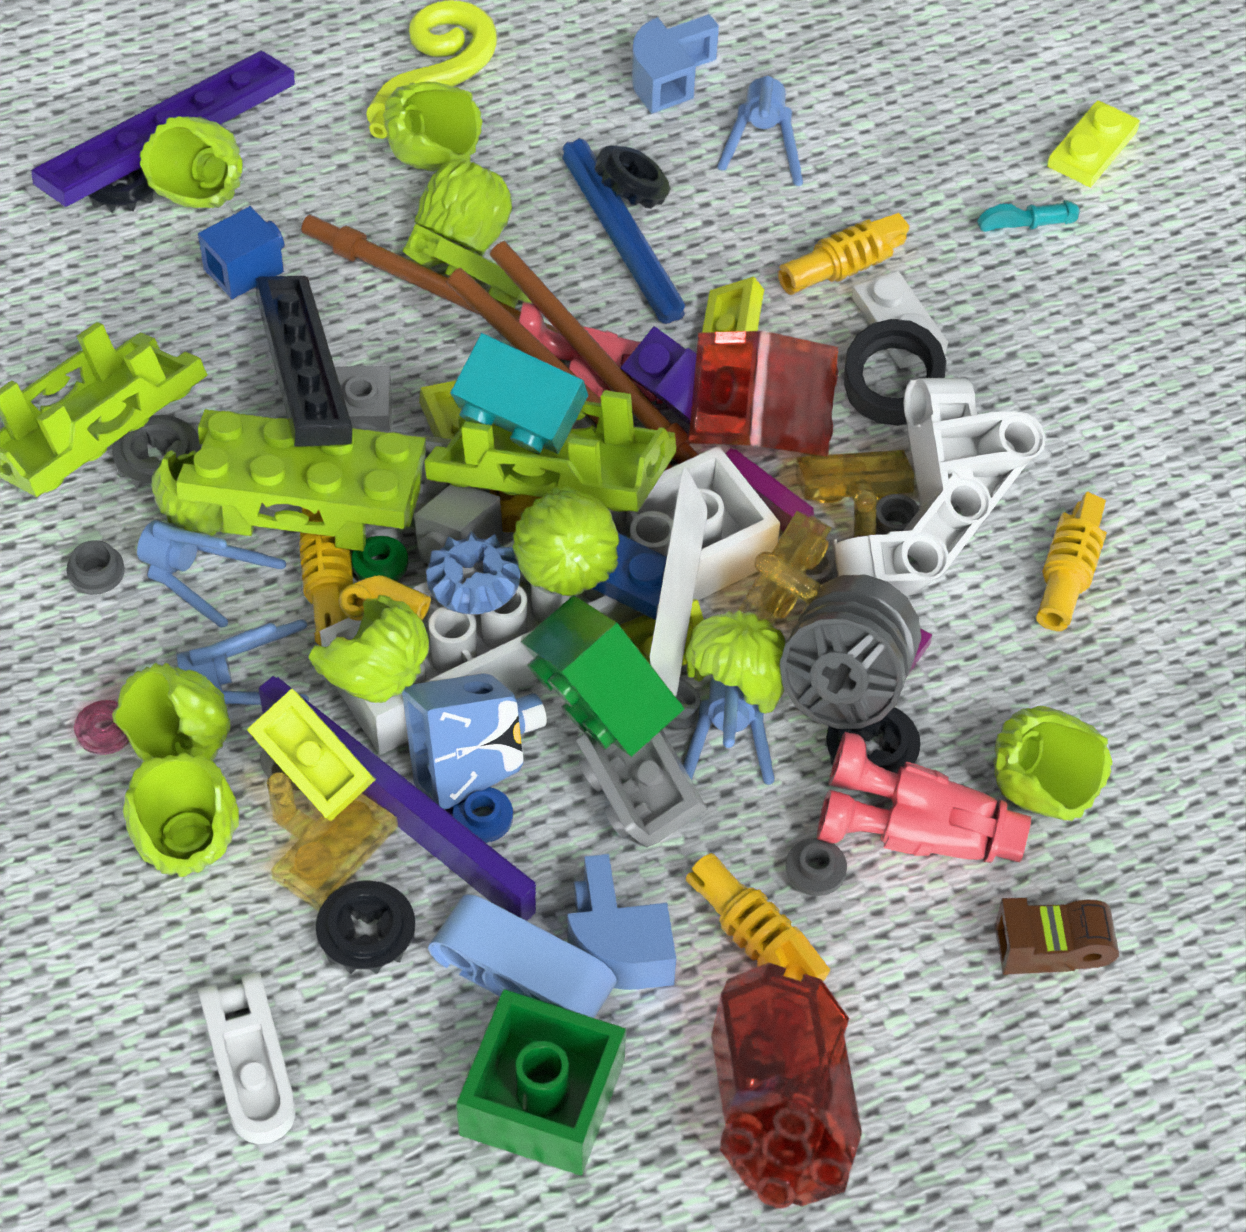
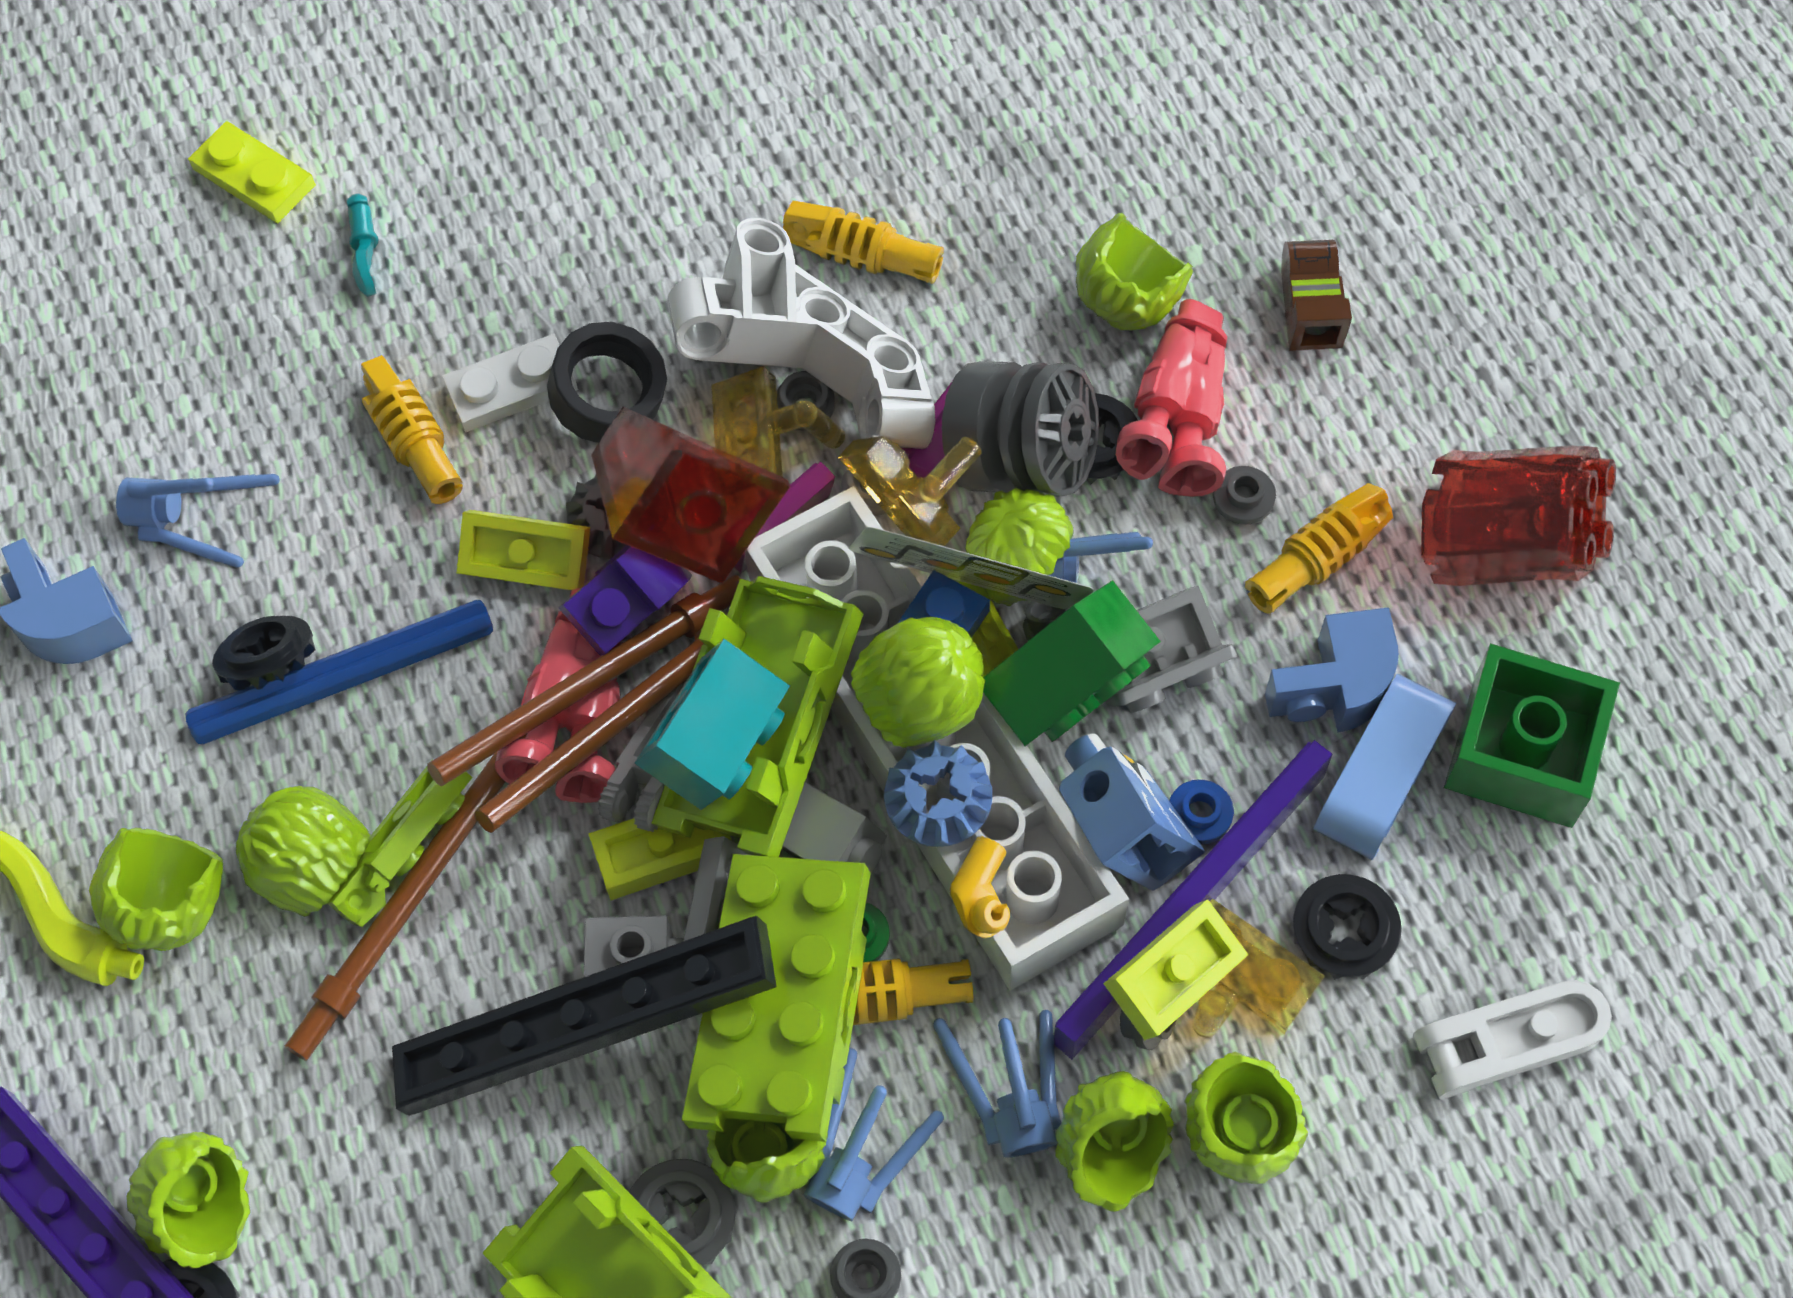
camera: 85 degrees left, 10 degrees up
(99, 740) = (1097, 1258): clear pink plate -> none
(241, 251) = (358, 1123): blue brick -> none
(381, 655) = (1074, 882): lime hair -> none

